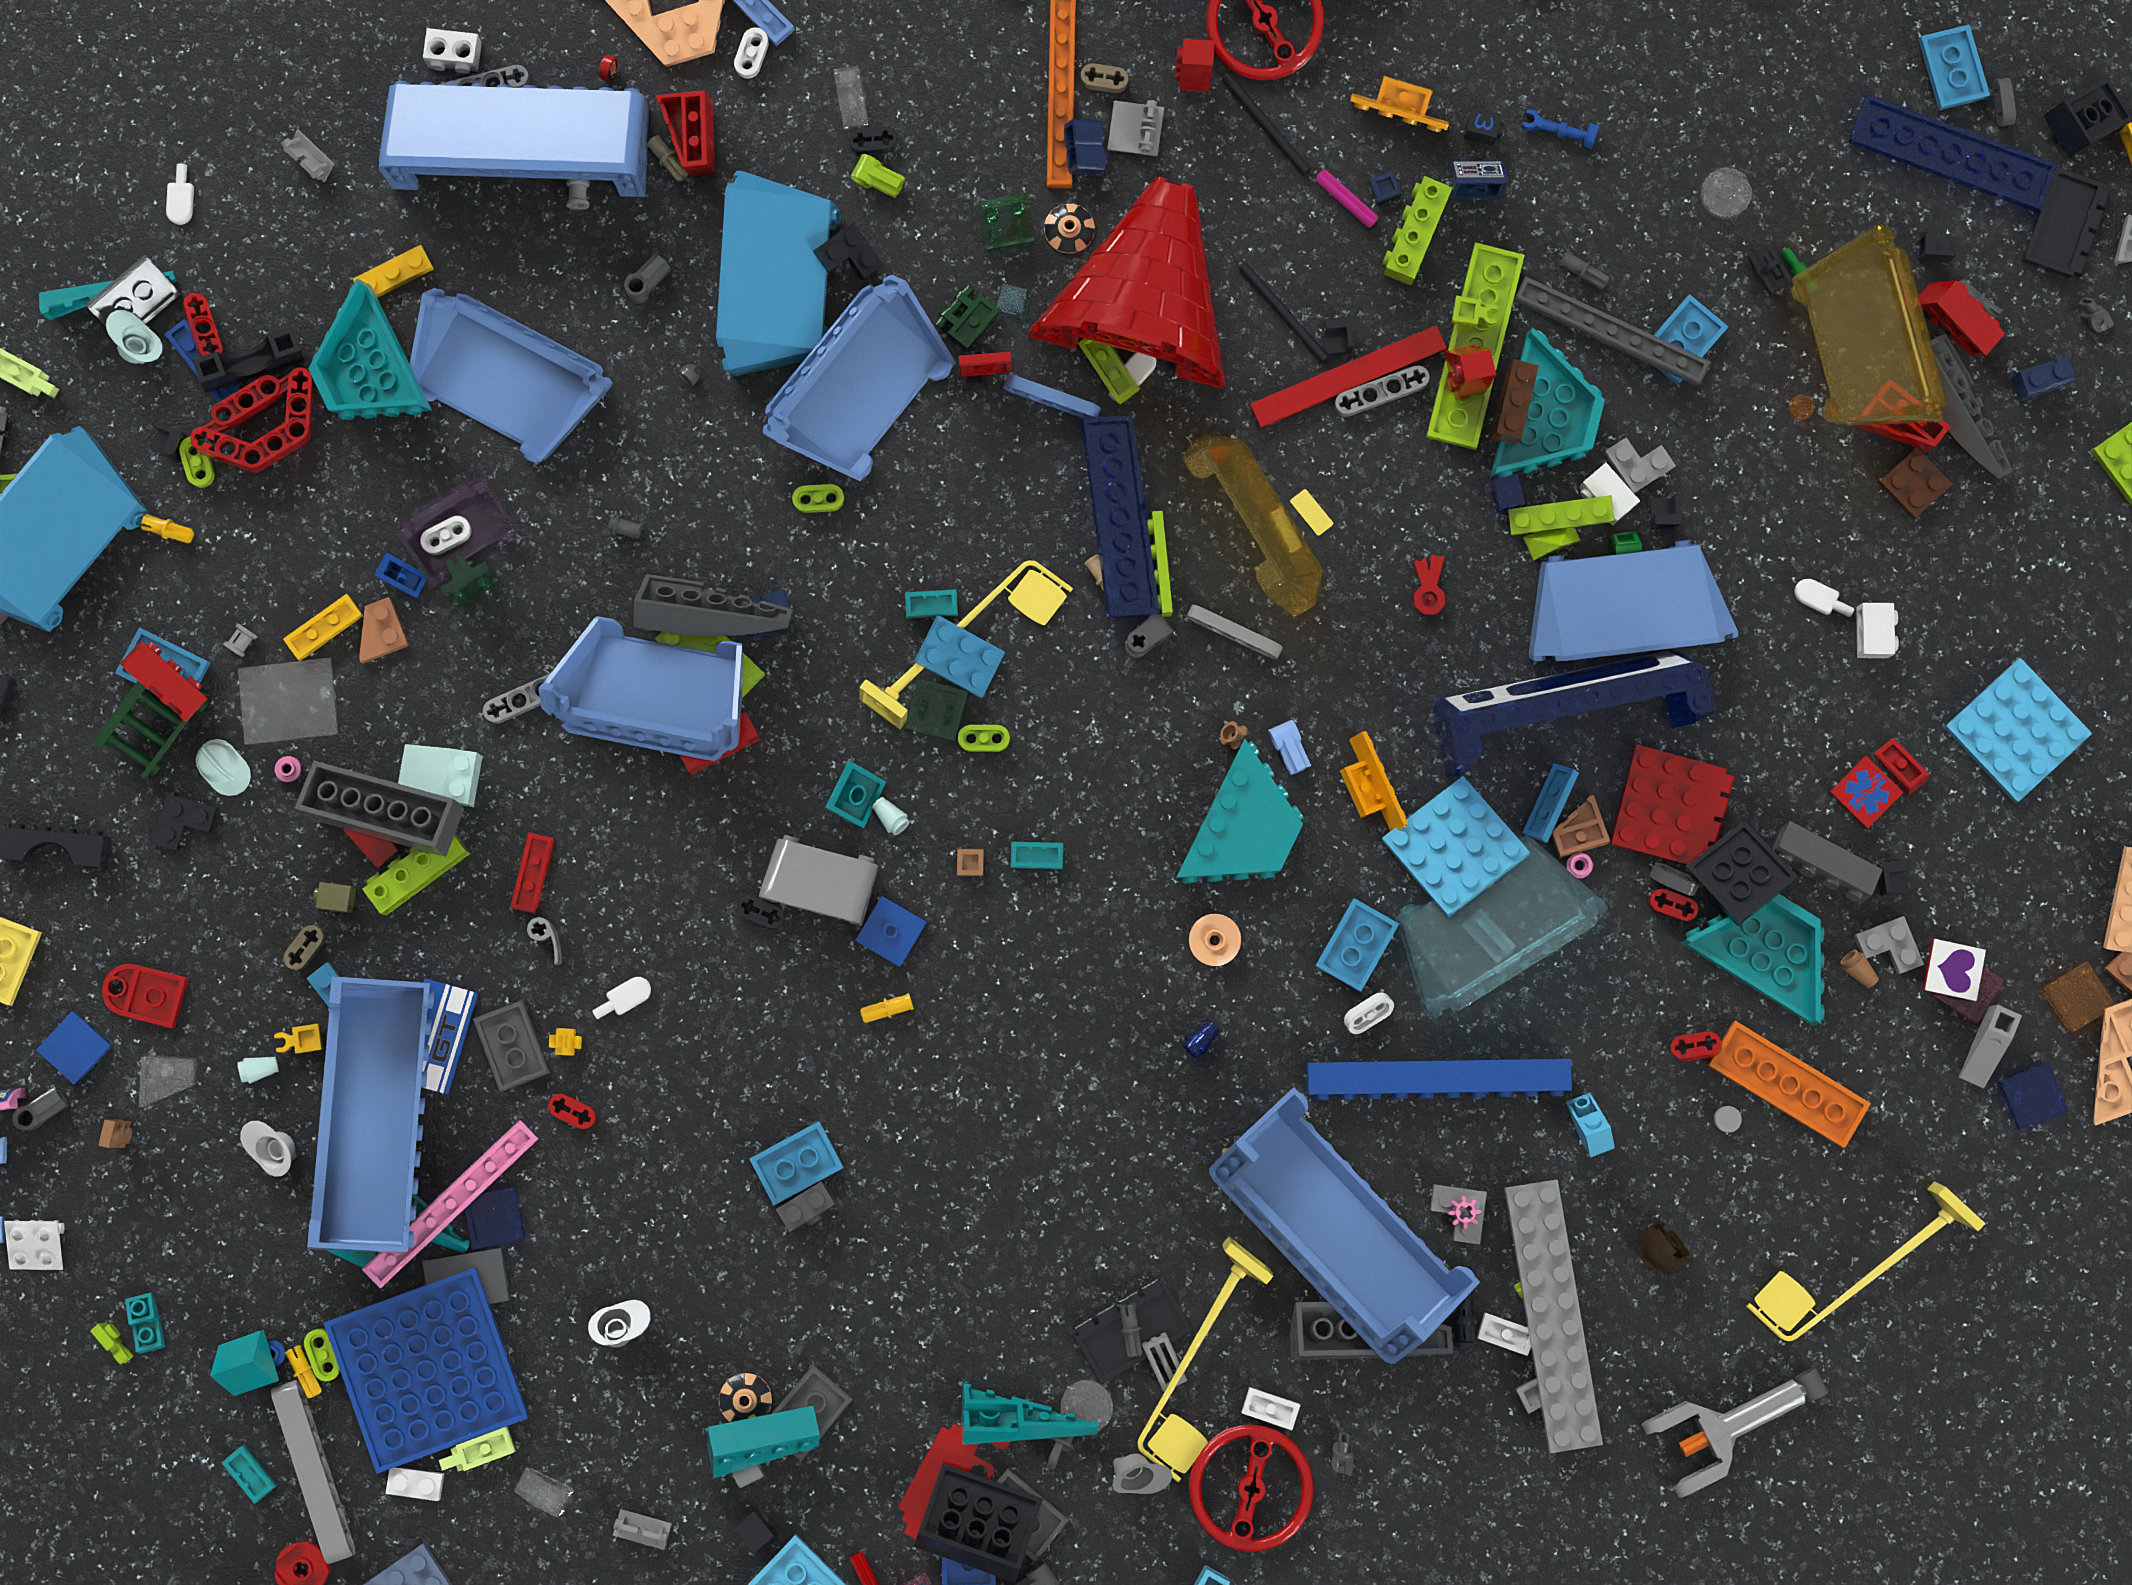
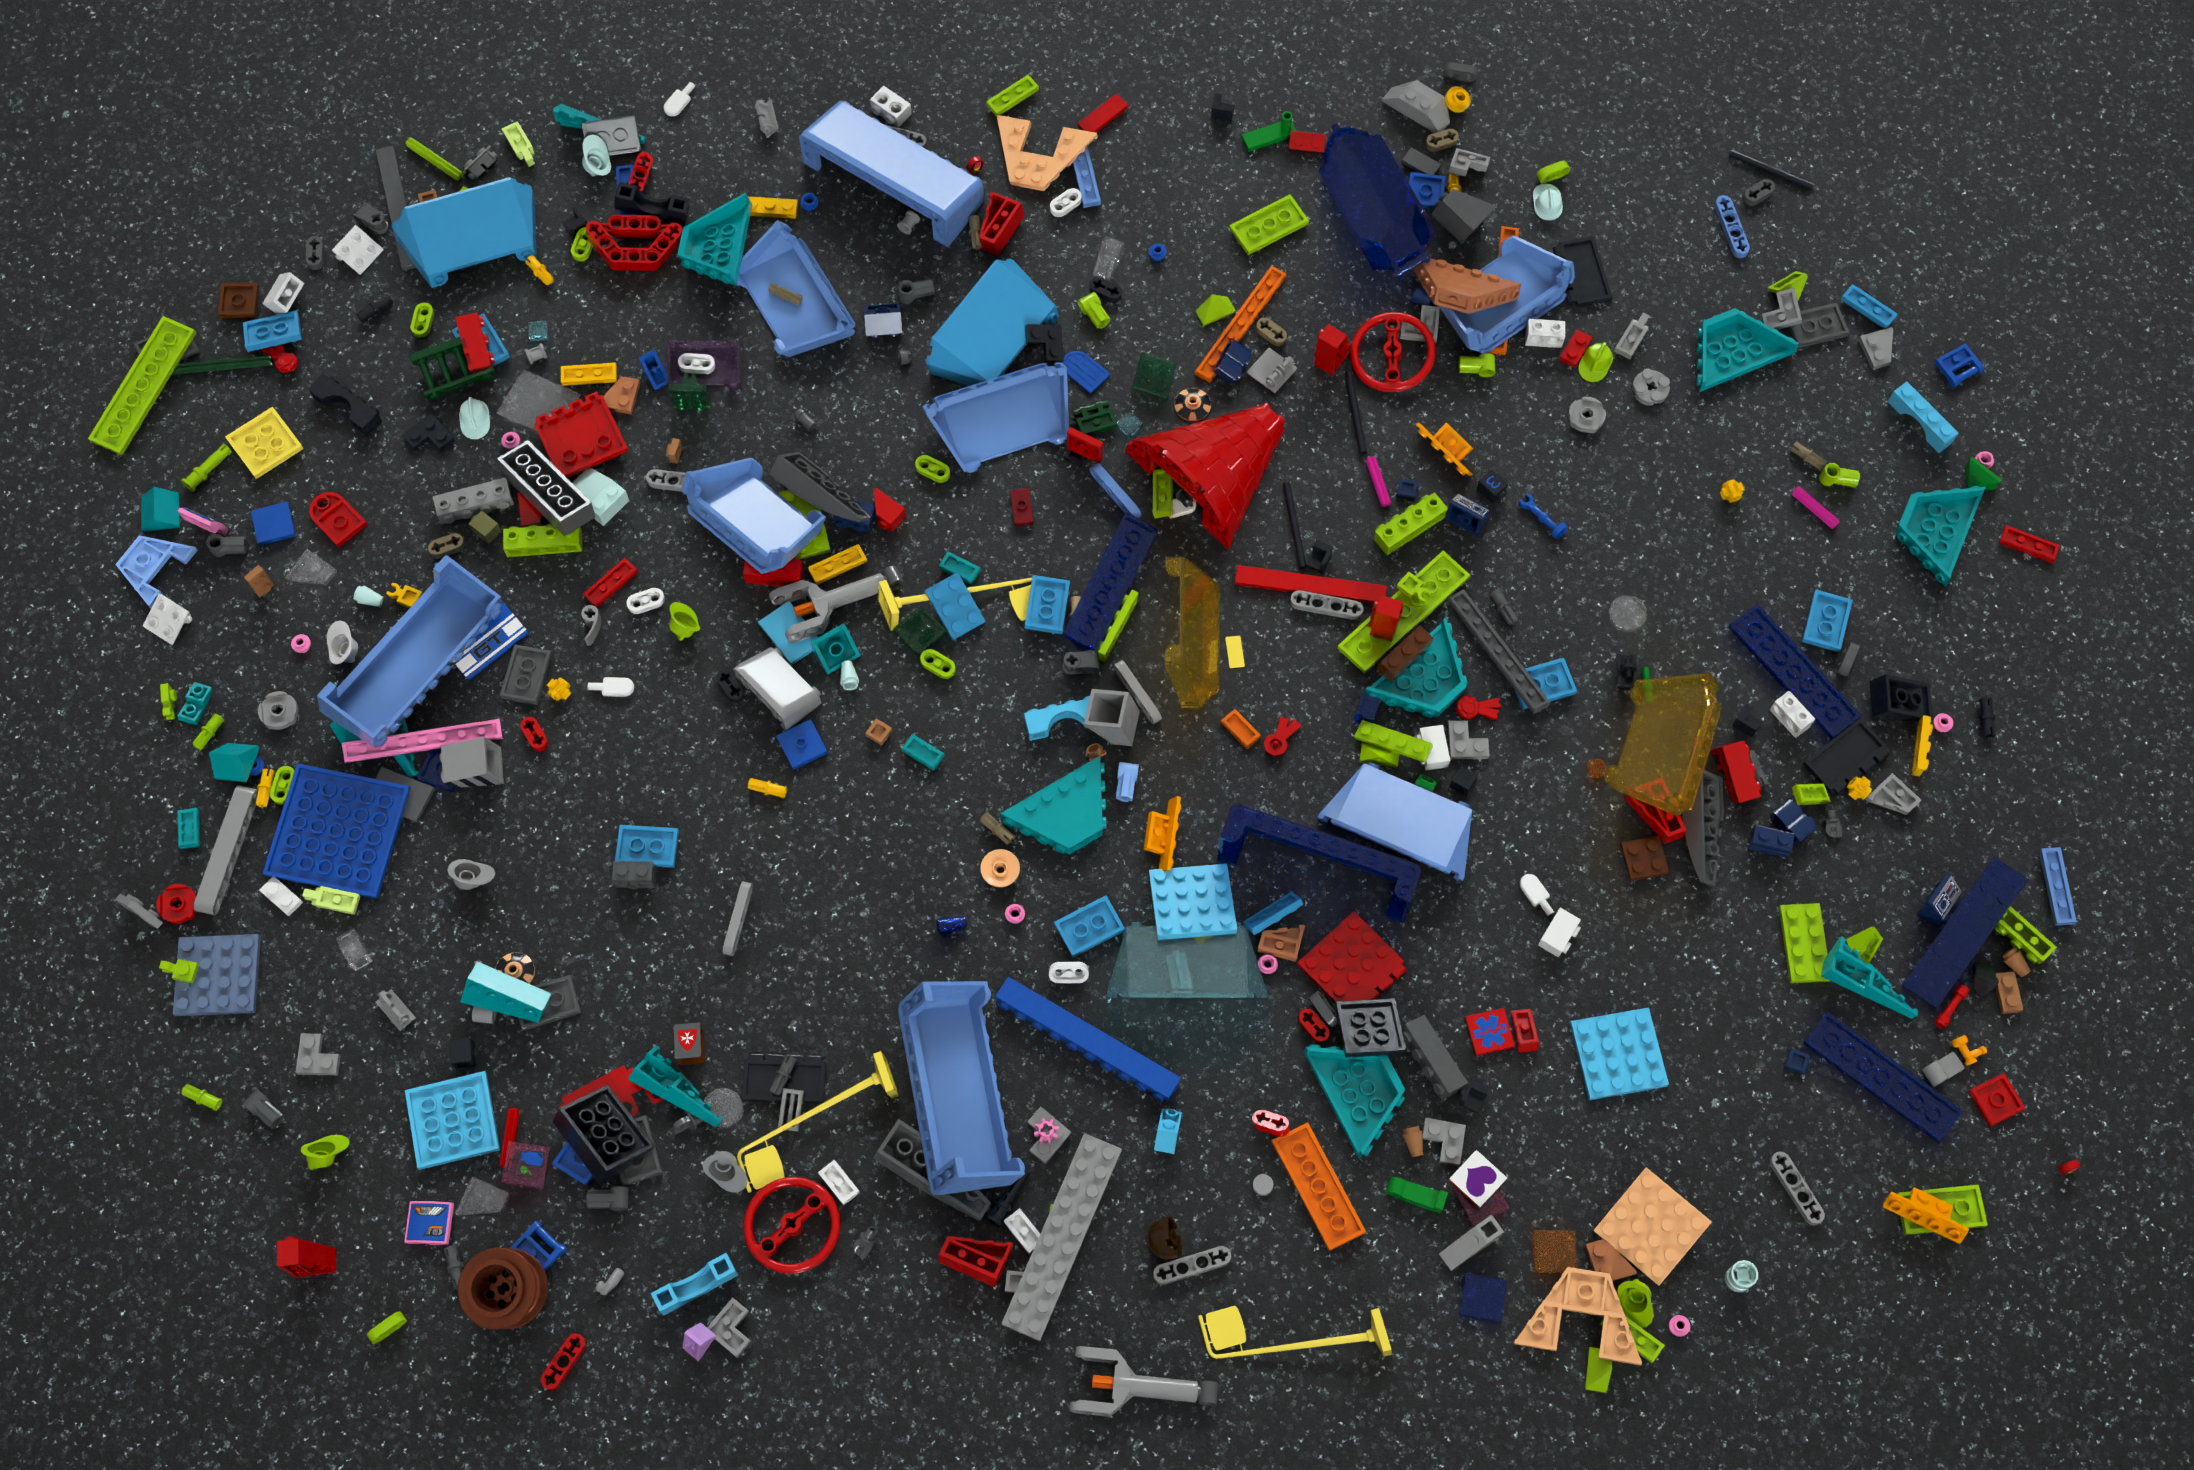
camera: 35 degrees right, 15 degrees down
(68, 682) = (422, 321): none -> lime plate
(186, 1347) = (208, 731): none -> lime axle
(221, 608) = (538, 330): none -> clear light blue plate
(225, 1174) = (303, 647): none -> bright pink plate
(266, 1271) = (270, 704): none -> light grey plate
(298, 873) = (472, 500): none -> light grey brick
(369, 713) = (580, 435): none -> red hinge
(435, 231) = (809, 197): none -> blue plate
(491, 379) = (785, 294): none -> dark tan axle
(495, 663) = (674, 450): none -> medium nougat plate
(528, 1196) = (471, 763): none -> light grey slope
(589, 869) = (645, 600): none -> white plate
(632, 341) = (883, 320): none -> slope
(653, 867) = (683, 620): none -> lime piece
(786, 687) = (837, 564): none -> yellow plate
(786, 805) = (775, 627): none -> medium azure tile
(801, 585) = (888, 511): none -> red slope
(804, 744) = (825, 602): none -> light grey piece
(903, 60) = (1157, 256): none -> blue plate
(914, 261) = (1085, 370): none -> blue window
(953, 482) = (1021, 507): none -> dark red plate
(958, 1182) = (737, 918): none -> light grey beam
(1003, 1361) = (689, 1043): none -> piece
(1019, 89) = (1214, 309): none -> lime slope
(1064, 588) = (1047, 604): none -> dark azure plate
(1136, 358) = (1182, 496): none -> pearl dark grey axle
(1180, 894) = (997, 828): none -> dark tan axle
(1194, 692) = (1040, 721): none -> medium azure arch
(1231, 684) = (1112, 716): none -> light grey slope
(1264, 973) = (1014, 908): none -> bright pink plate
(1377, 603) = (1240, 728): none -> orange tile
(1477, 1398) = (976, 1258): none -> red wedge
(1618, 419) = (1468, 707): none -> red piece
(1704, 1253) = (1190, 1261): none -> light grey beam
(1900, 1026) = (1417, 1194): none -> green leg
(1981, 209) = (1792, 714): none -> white brick
(2052, 339) = (1792, 819): none -> dark blue brick
(2055, 295) = (1810, 794): none -> lime plate
(2103, 255) = (1859, 788): none -> yellow gear

